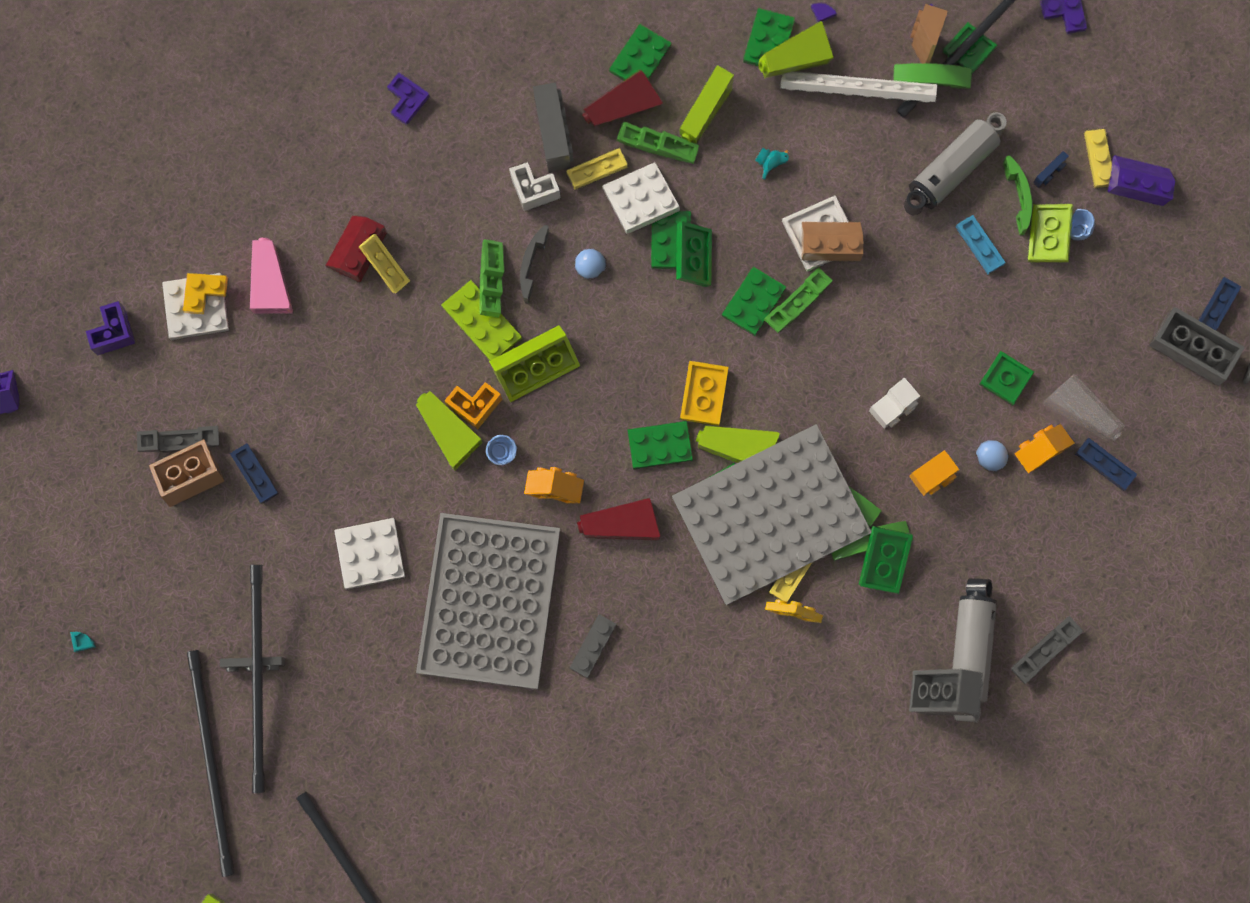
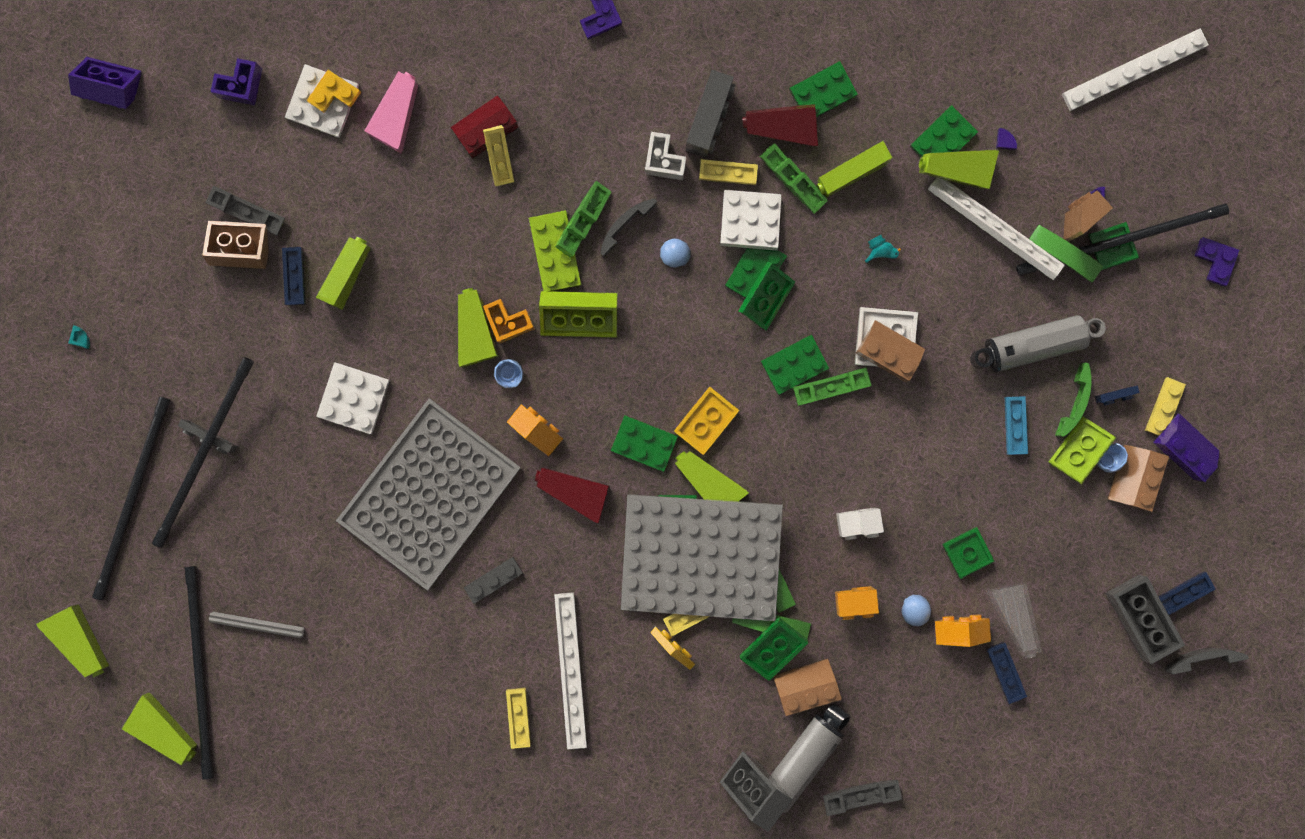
camera: 30 degrees right, 10 degrees up
(300, 444) = (344, 273): none -> lime slope
(394, 814) = (255, 624): none -> light grey axle
(689, 760) = (518, 718): none -> light yellow plate
(712, 688) = (570, 670): none -> white plate
(936, 578) = (807, 687): none -> medium nougat slope
(1115, 230) = (1139, 479): none -> medium nougat slope

